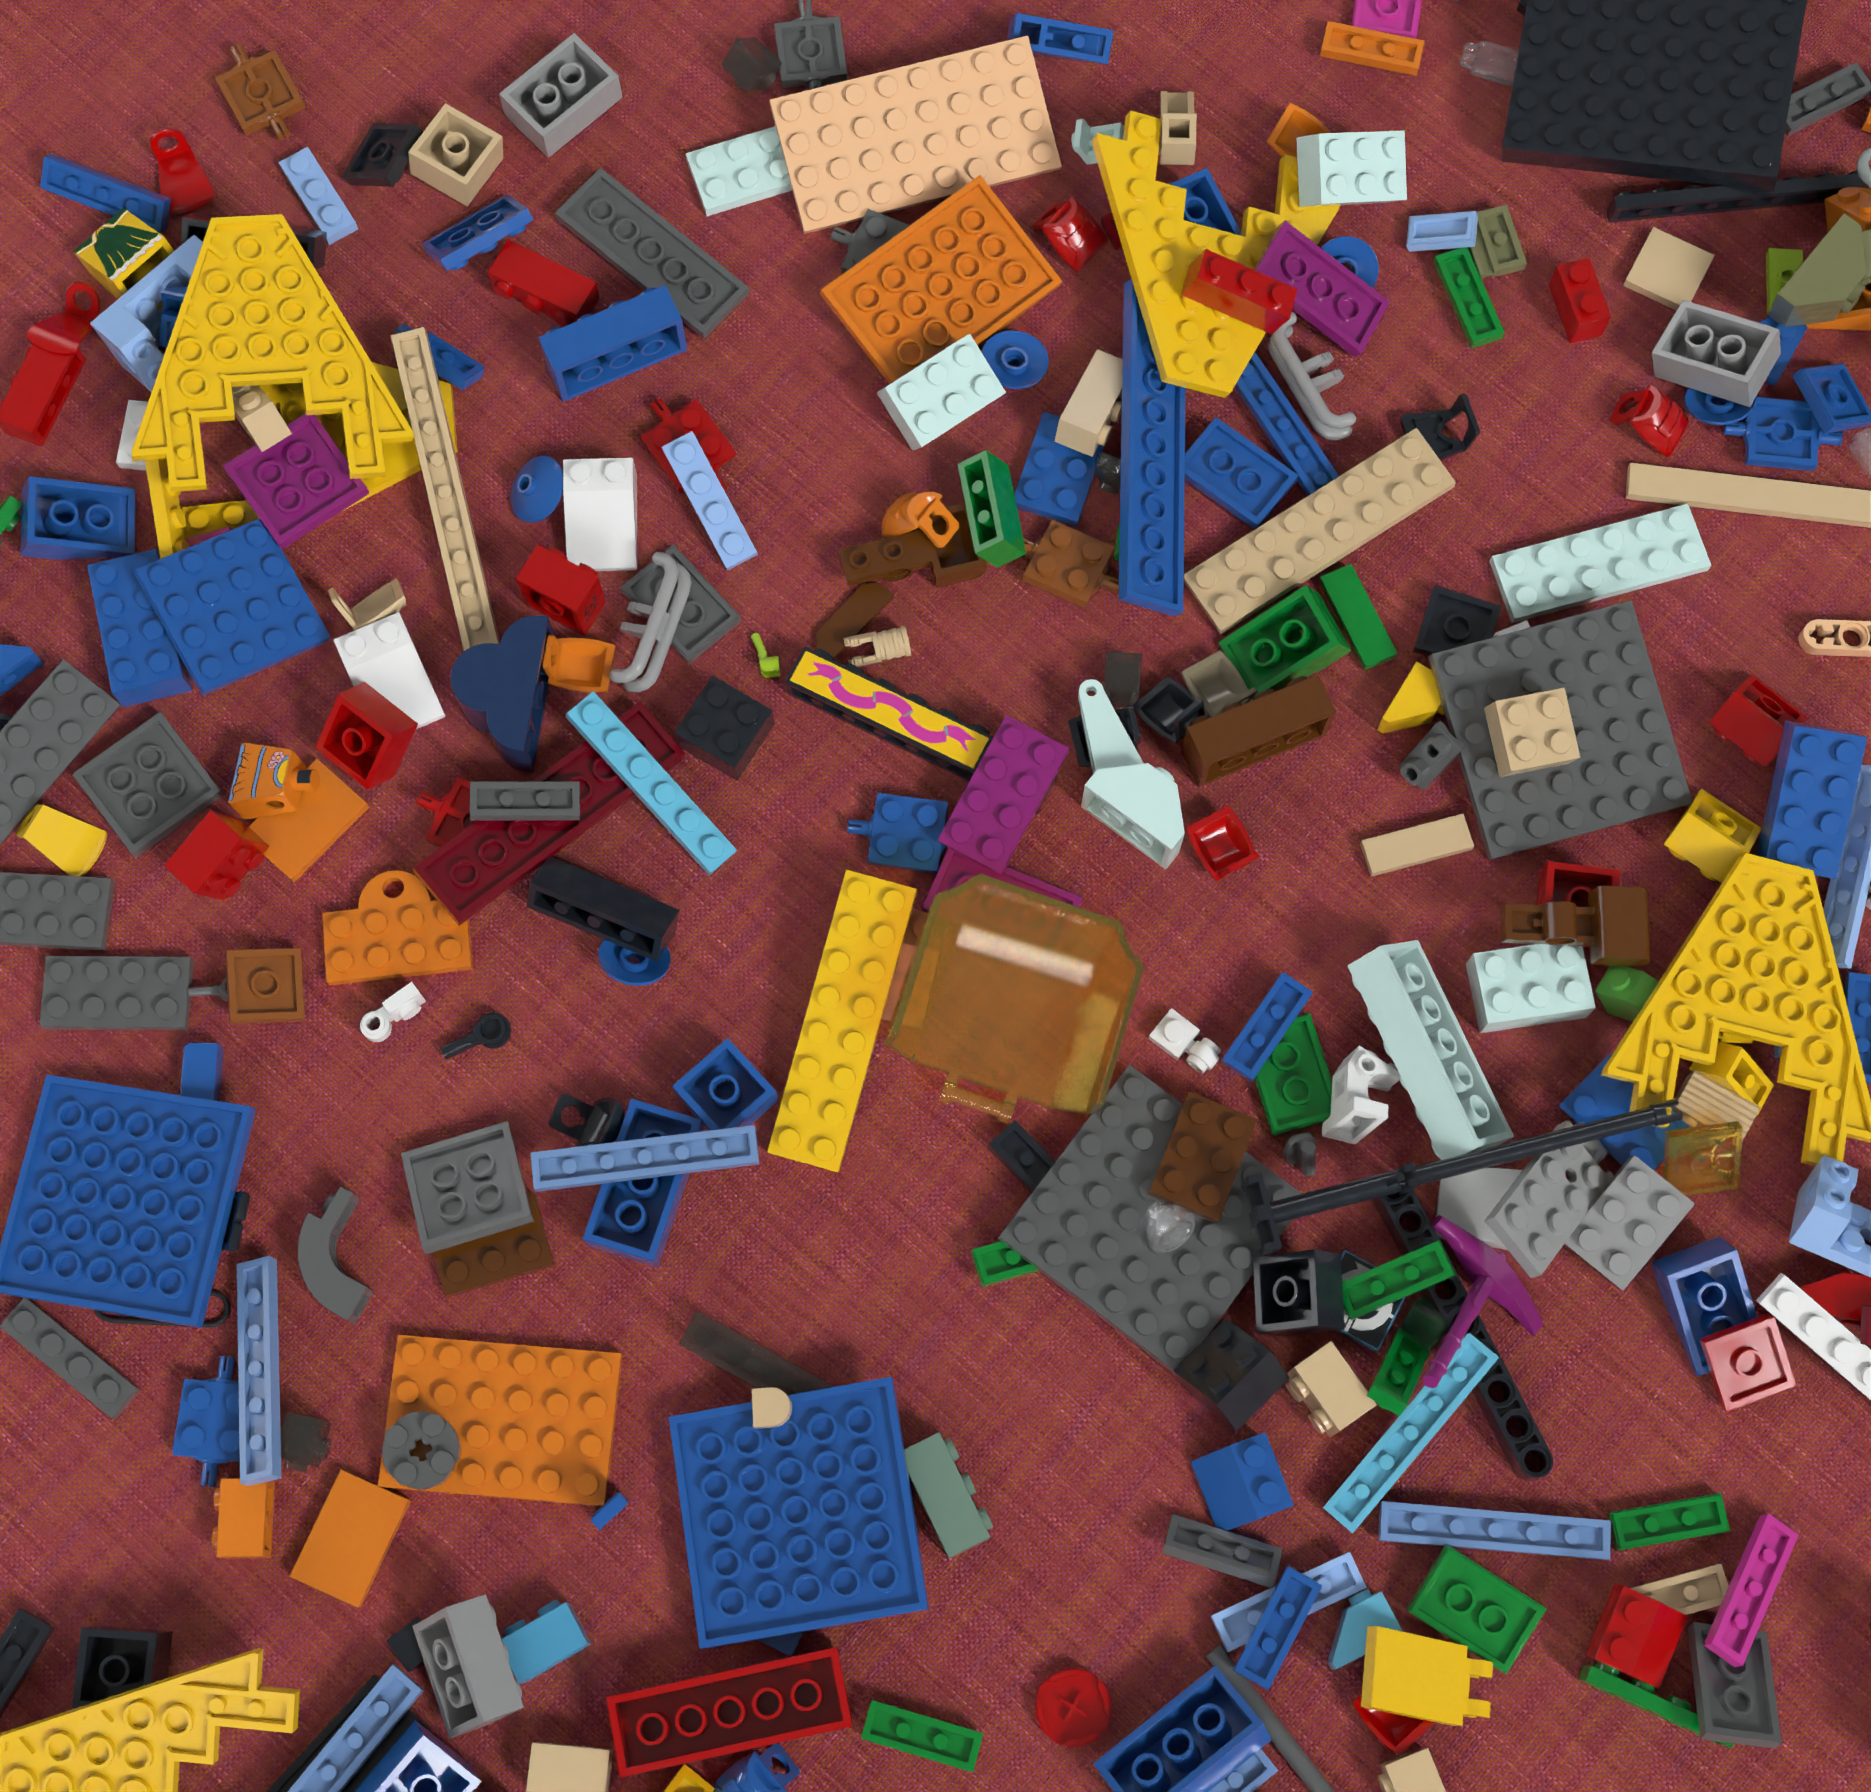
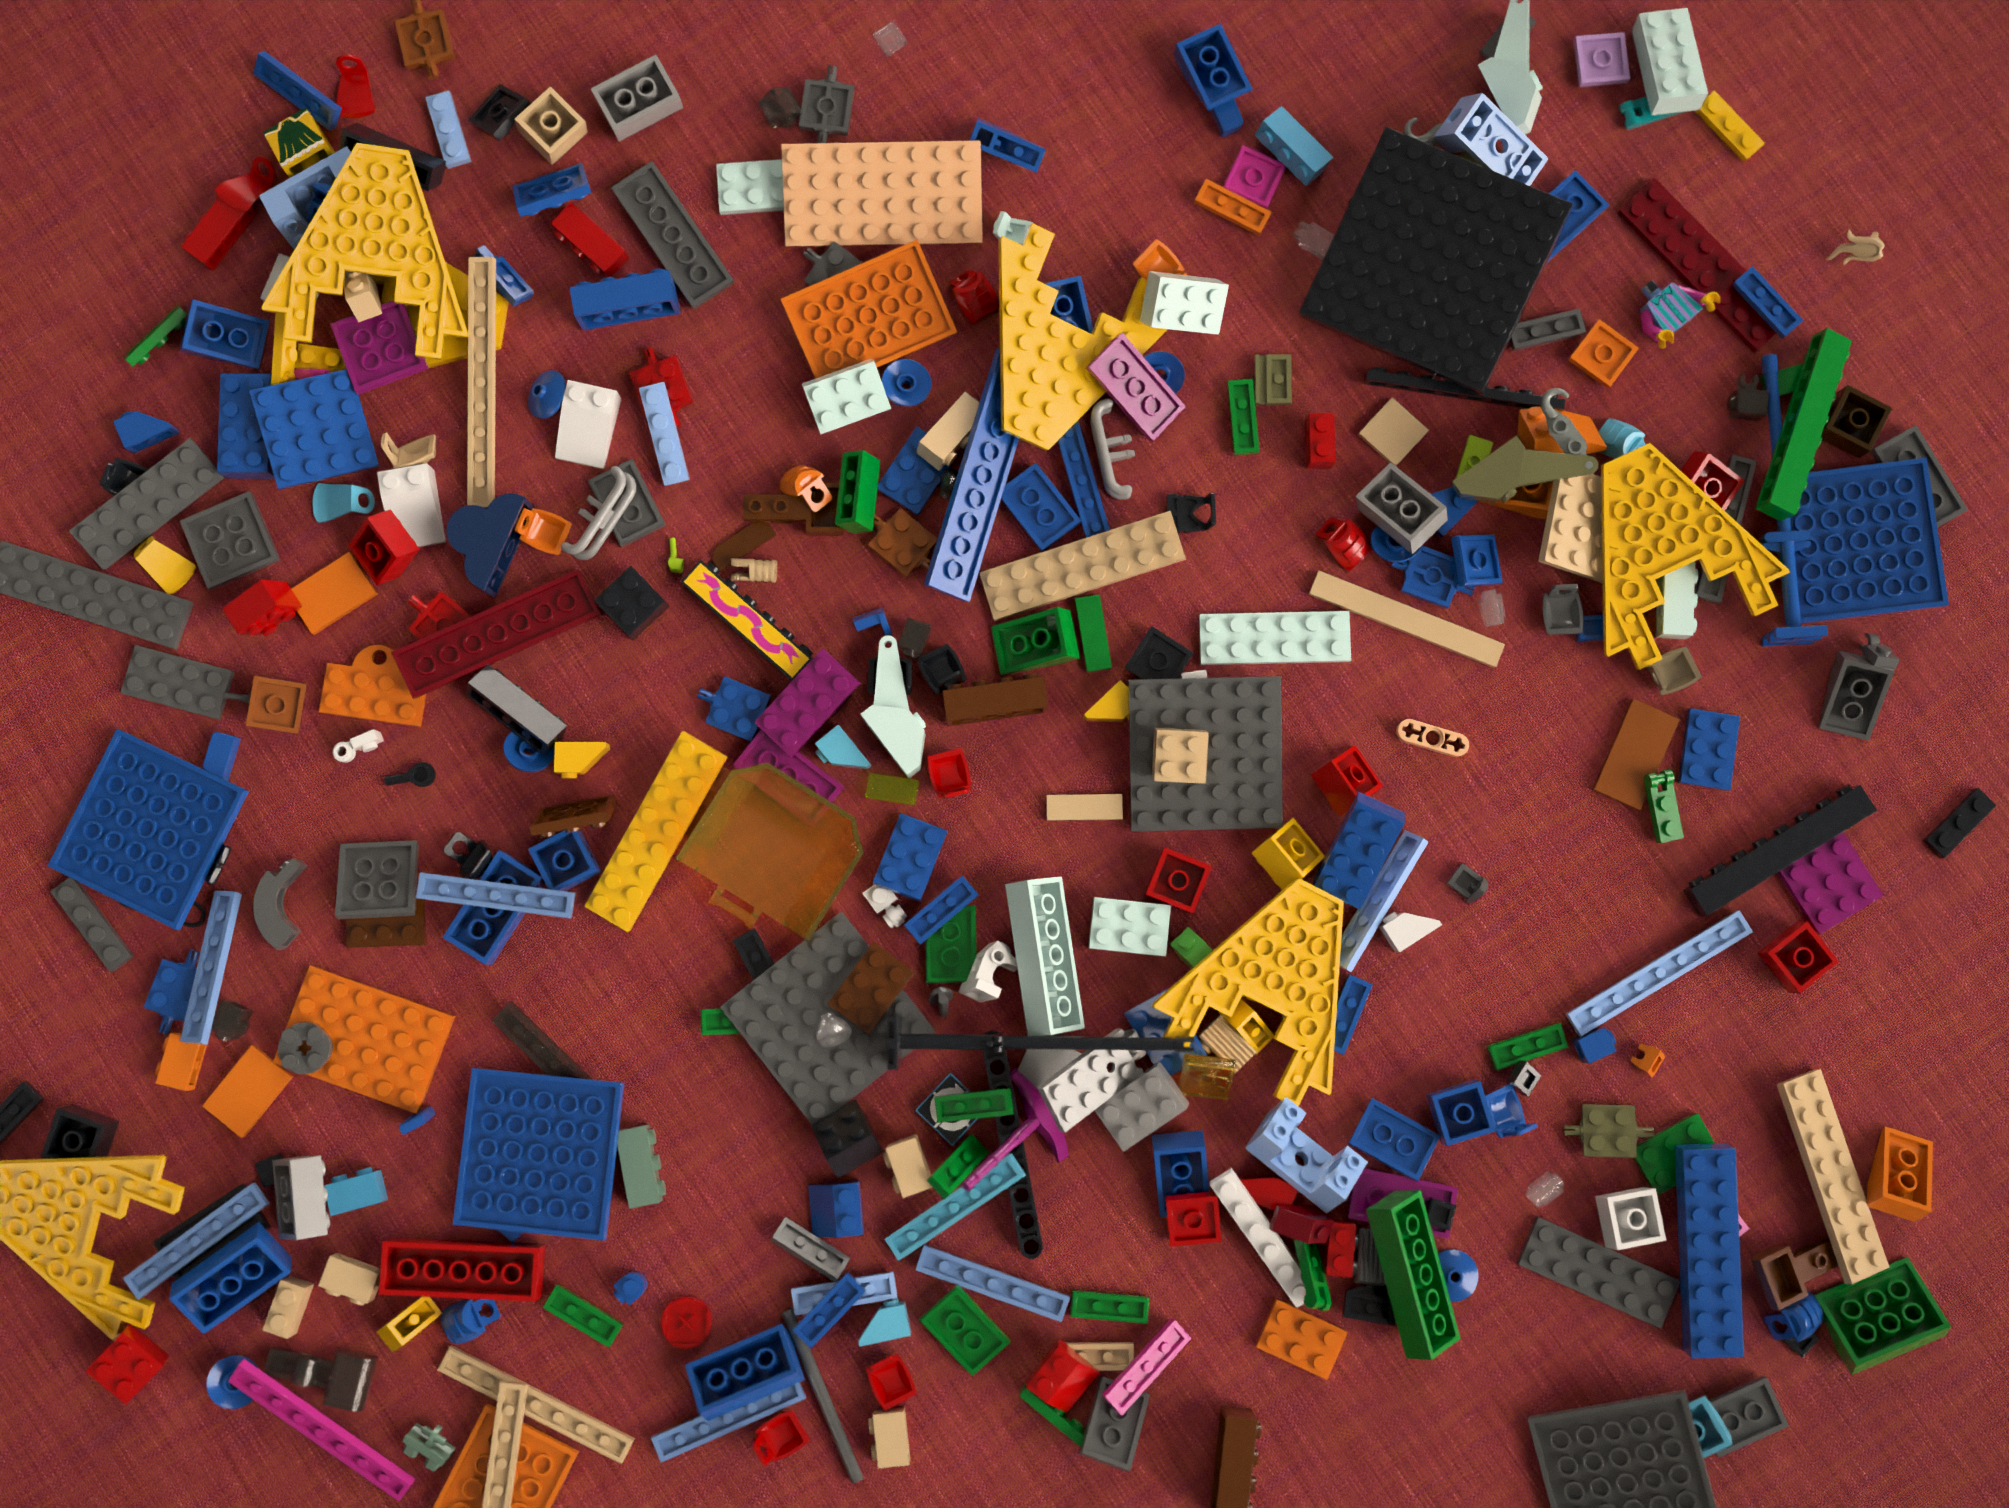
camera: 10 degrees right, 10 degrees up
(269, 781) = (311, 561): orange torso -> none
(282, 696) = (337, 500): none -> medium azure piece
(524, 801) = (478, 624): dark grey plate -> none
(561, 589) = (538, 469): red brick -> none
(651, 783) = (570, 630): medium azure plate -> none
(705, 950) = (577, 757): none -> yellow slope
(725, 1024) = (573, 816): none -> reddish brown plate
(770, 1407) = (537, 1081): tan tile -> none
(979, 1675) = (630, 1287): none -> blue plate
(1063, 664) = (872, 618): none -> blue tile
(1066, 851) = (840, 750): none -> medium azure slope
(1148, 887) = (892, 789): none -> clear neon green tile
(1178, 128) = (1070, 238): tan arch -> none
(1201, 970) = (910, 857): none -> blue plate
(1217, 683) = (979, 659): dark tan piece -> none
(1239, 291) = (1072, 379): red brick -> none
(1298, 1293) = (907, 1097): black brick -> none
(1421, 1677) = (911, 1367): yellow tile -> none
(1425, 1324) = (987, 1137): clear green tile -> none
(1430, 756) = (1109, 750): dark grey hips -> none
(1442, 231) = (1239, 362): light blue tile -> none
(1611, 925) = (1192, 905): reddish brown plate -> none

